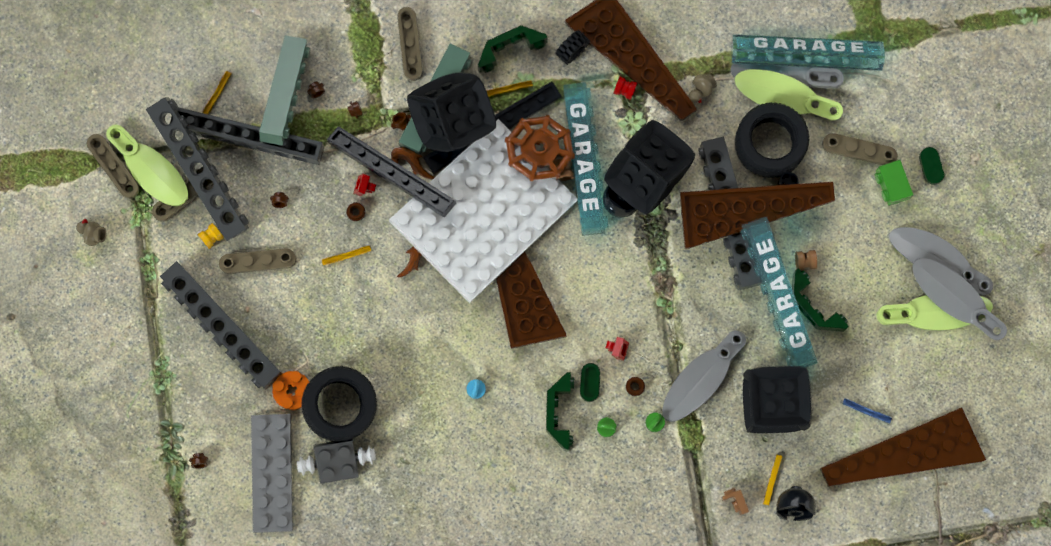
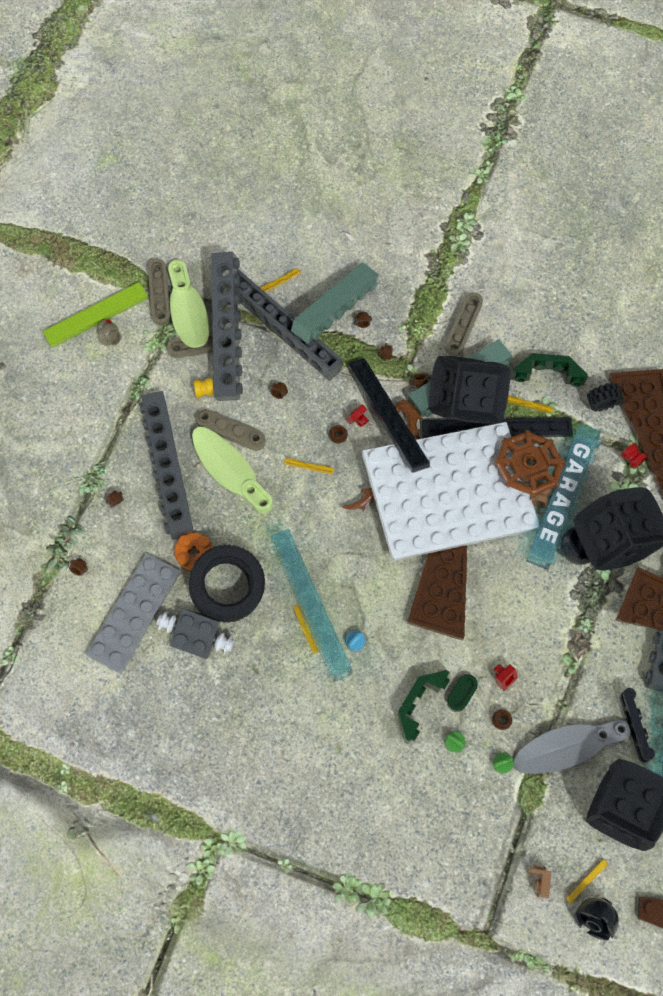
camera: 30 degrees right, 10 degrees down
(67, 220) = (93, 315): none -> lime tile
(193, 382) = (114, 498): none -> reddish brown plate
(277, 297) = (229, 468): none -> yellowish green plant
(417, 395) = (310, 640): none -> yellow piece
(420, 379) = (311, 605): none -> clear light blue brick
(751, 333) = (638, 733): none -> black plate

